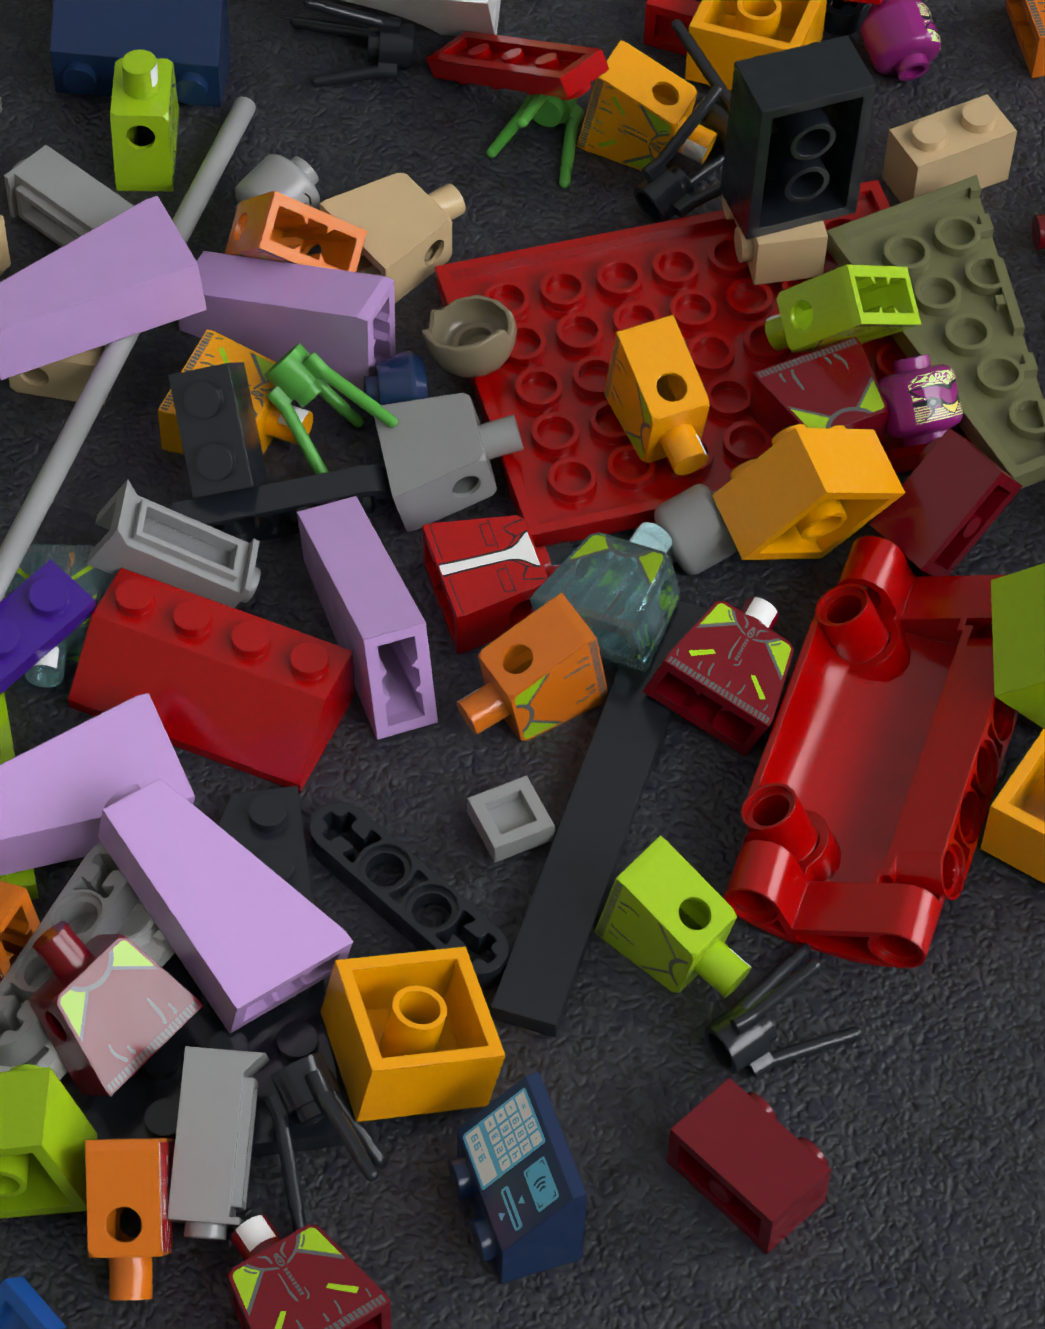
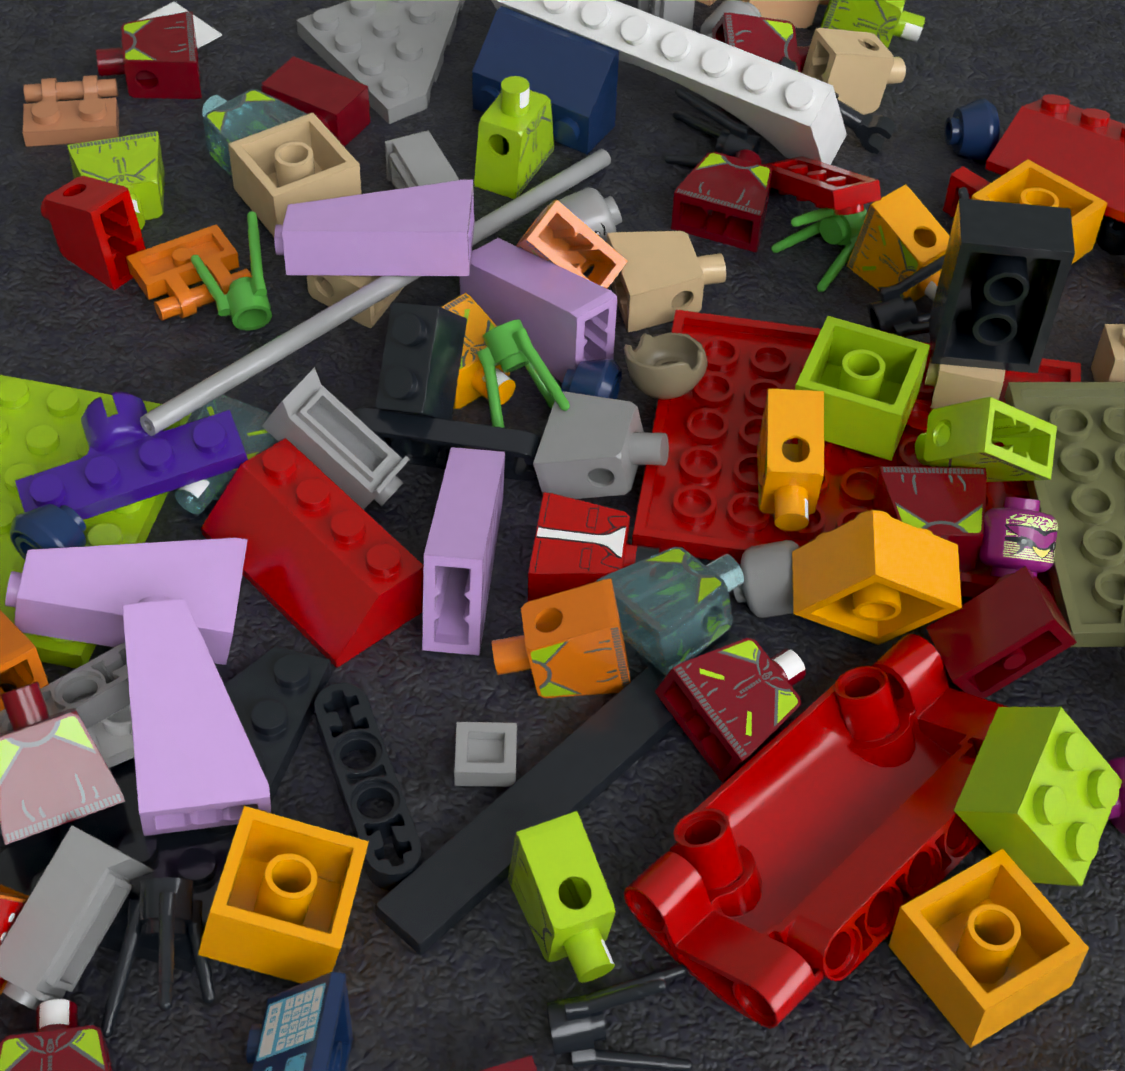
camera: 25 degrees right, 5 degrees down
(416, 113) = (724, 199): none -> dark red torso
(694, 275) = (866, 383): none -> lime brick

